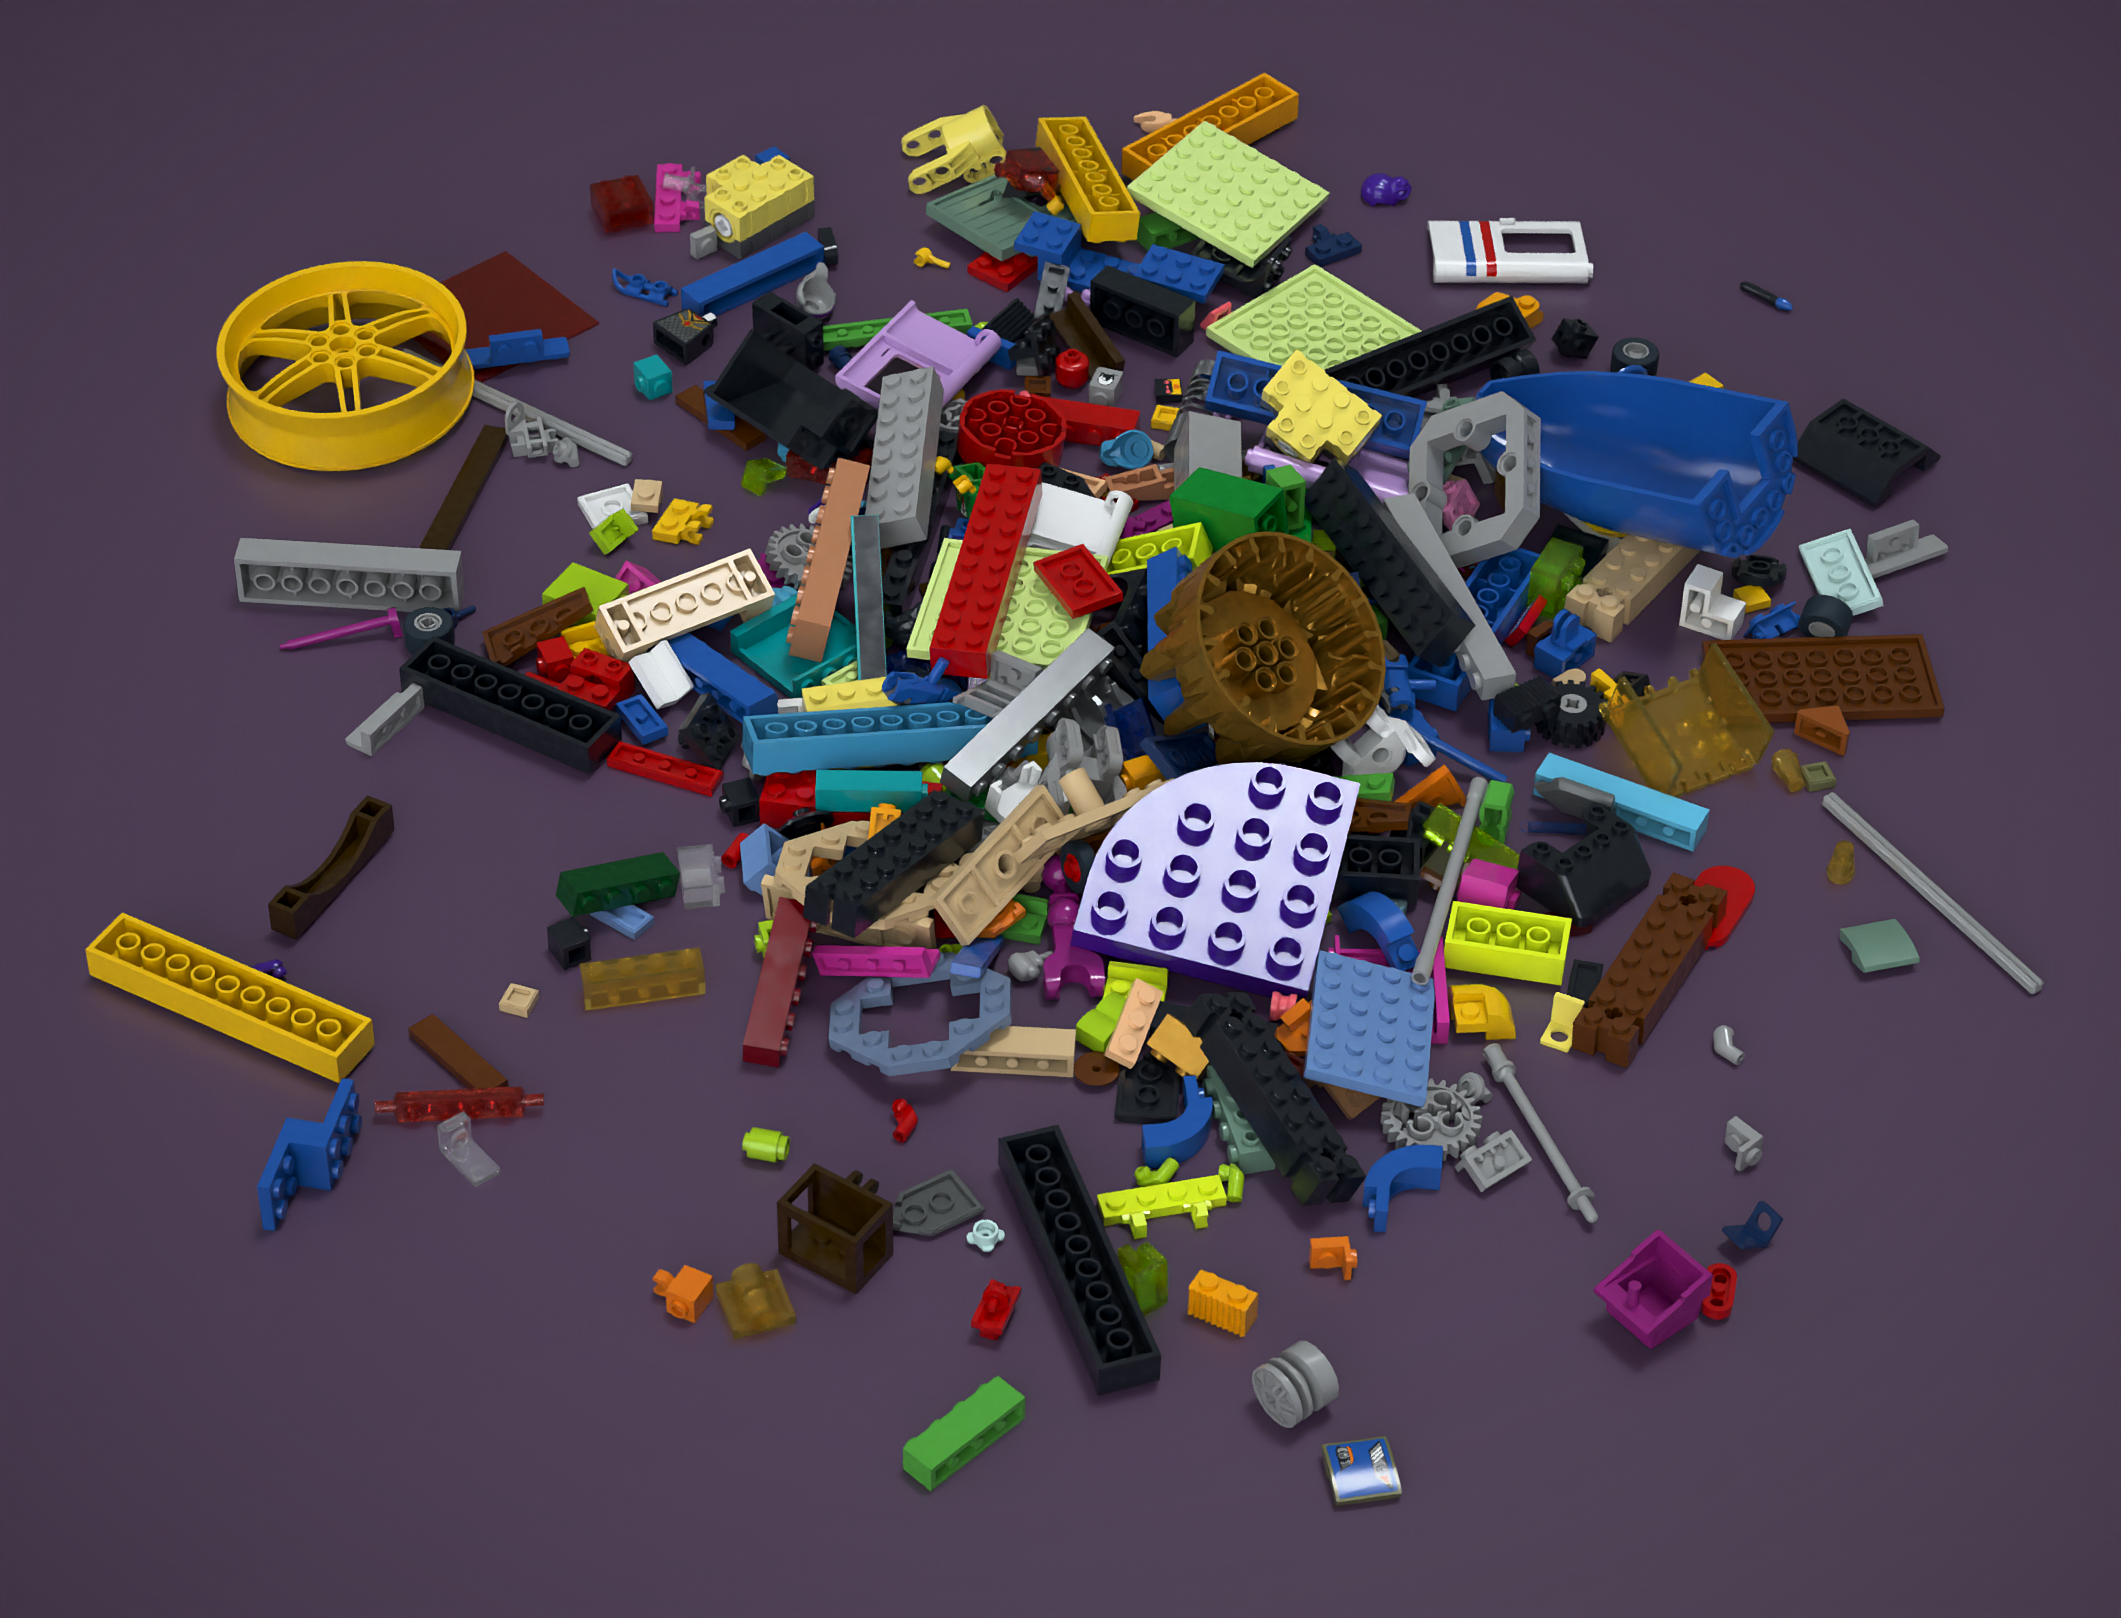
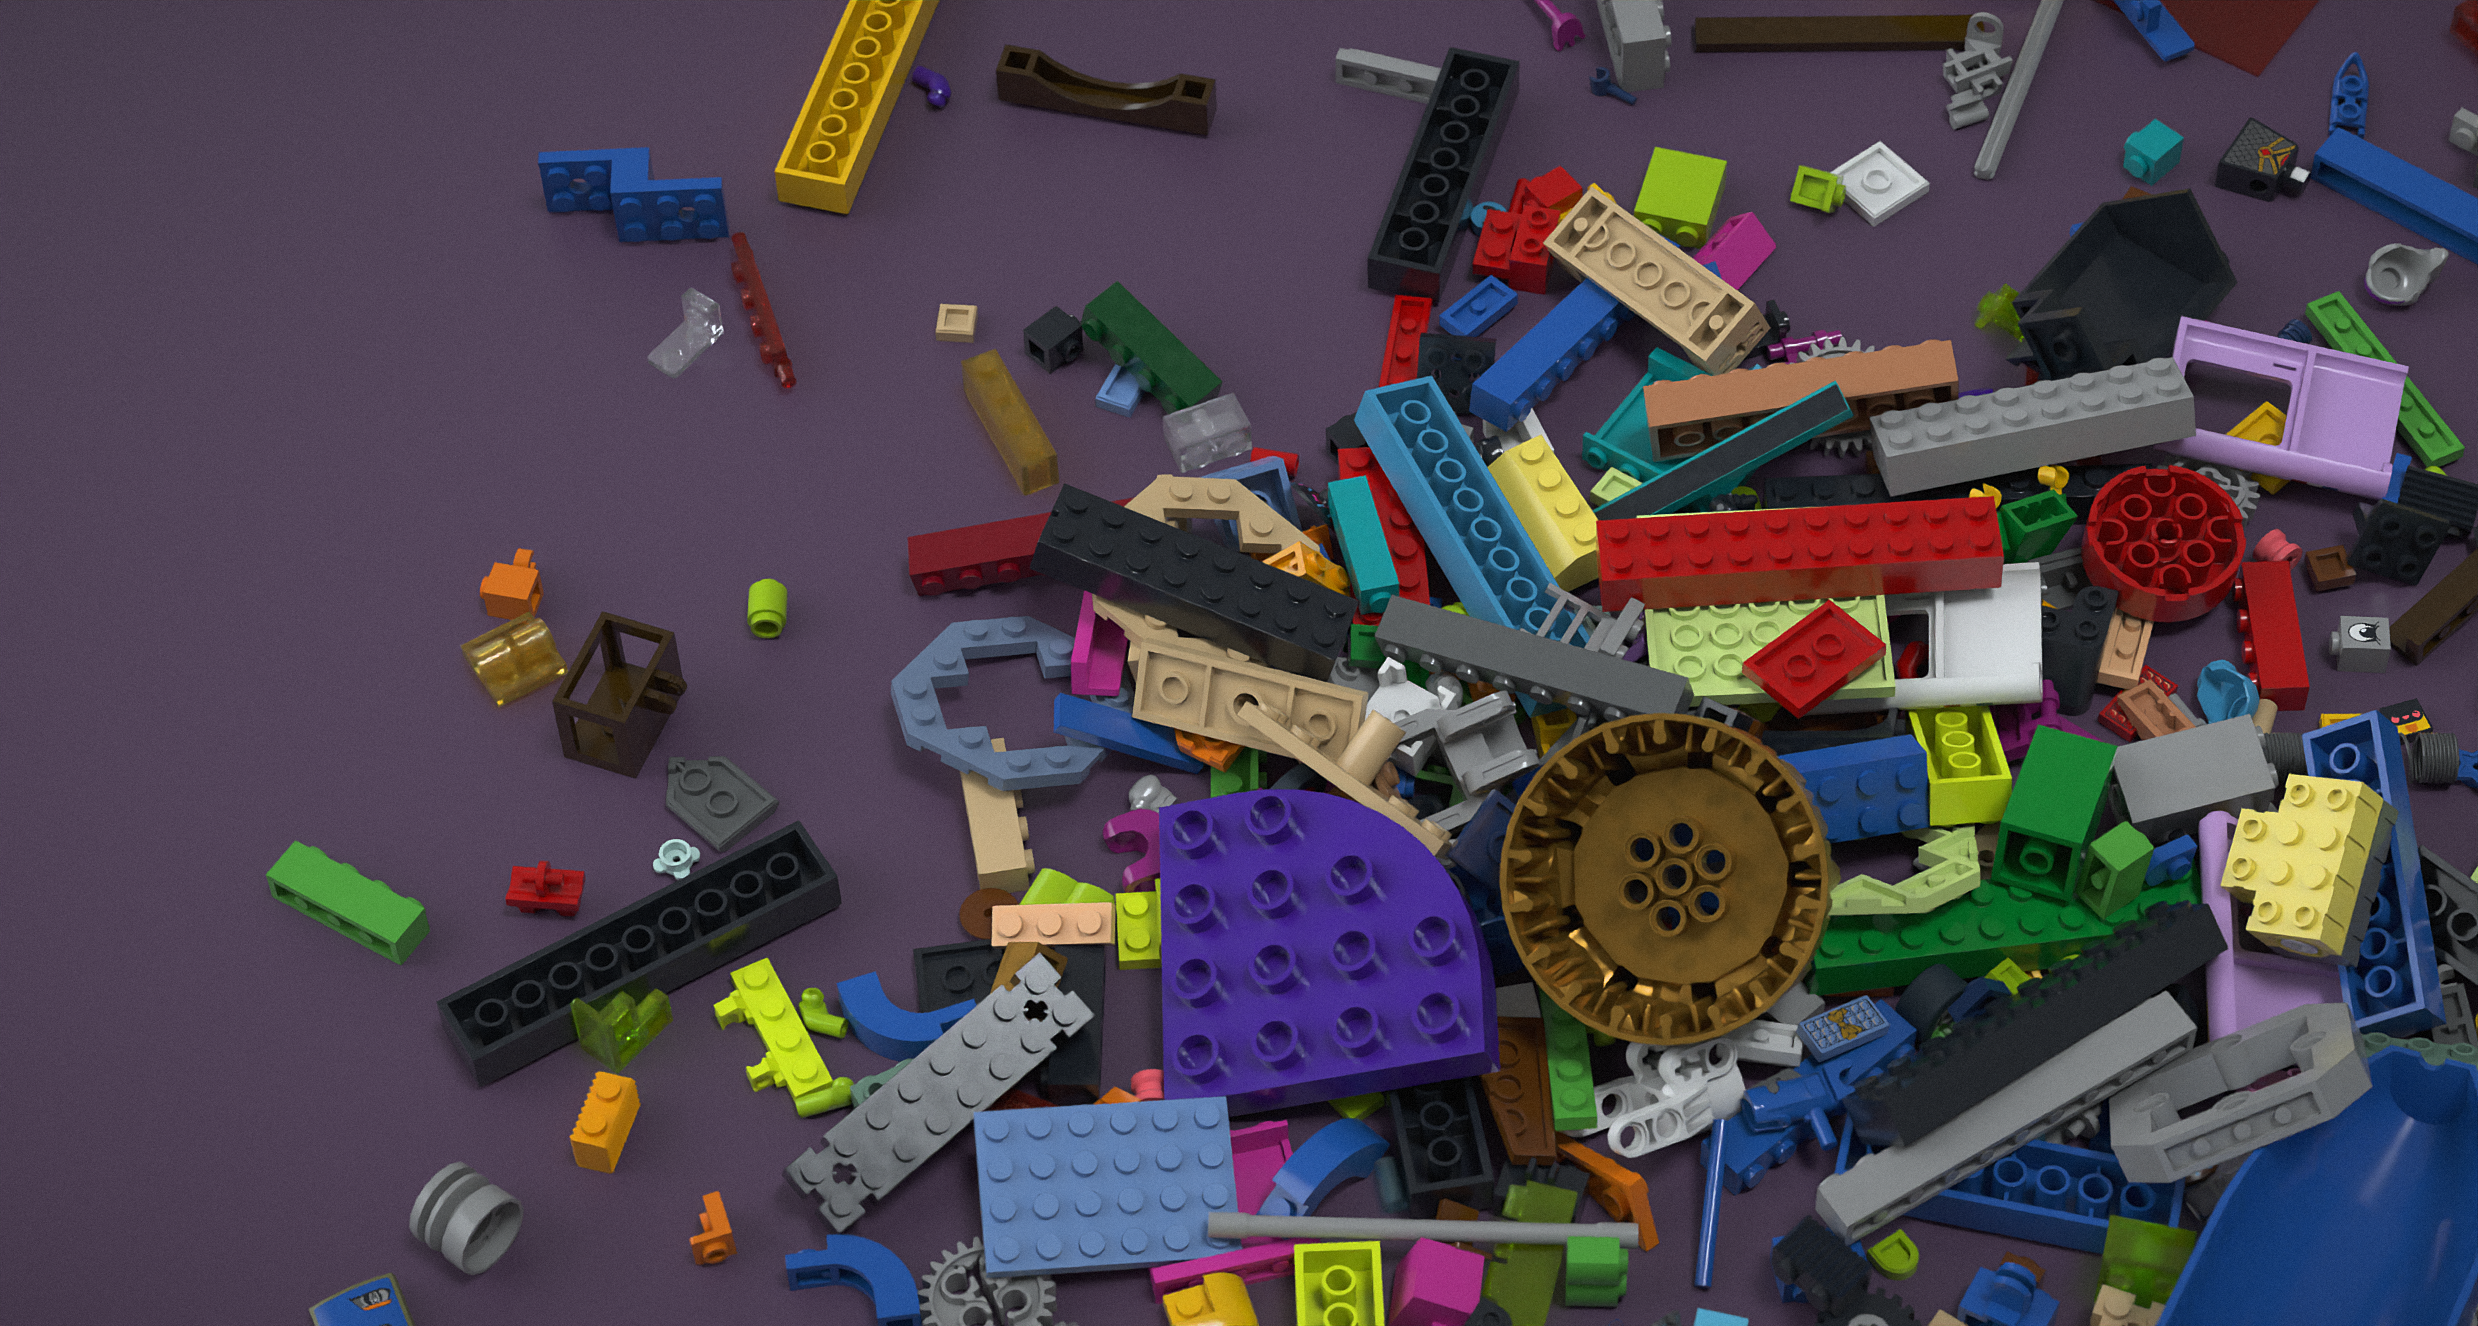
camera: 80 degrees right, 10 degrees up
(425, 623) = (1558, 67): black wheel -> none
(455, 1054) = (846, 292): reddish brown tile -> none
(520, 634) = (1590, 157): reddish brown wing -> none
(647, 496) = (1902, 204): tan bracket -> none
(662, 675) = (1540, 295): white panel -> none
(682, 522) = (1879, 251): yellow plate -> none
(789, 329) = (2293, 261): black piece -> none
(906, 1119) = (853, 739): red arm -> none
(909, 689) = (1563, 550): blue piece -> none
(1072, 369) = (2382, 592): red head -> none
(1525, 621) = (2054, 1253): red tile -> none

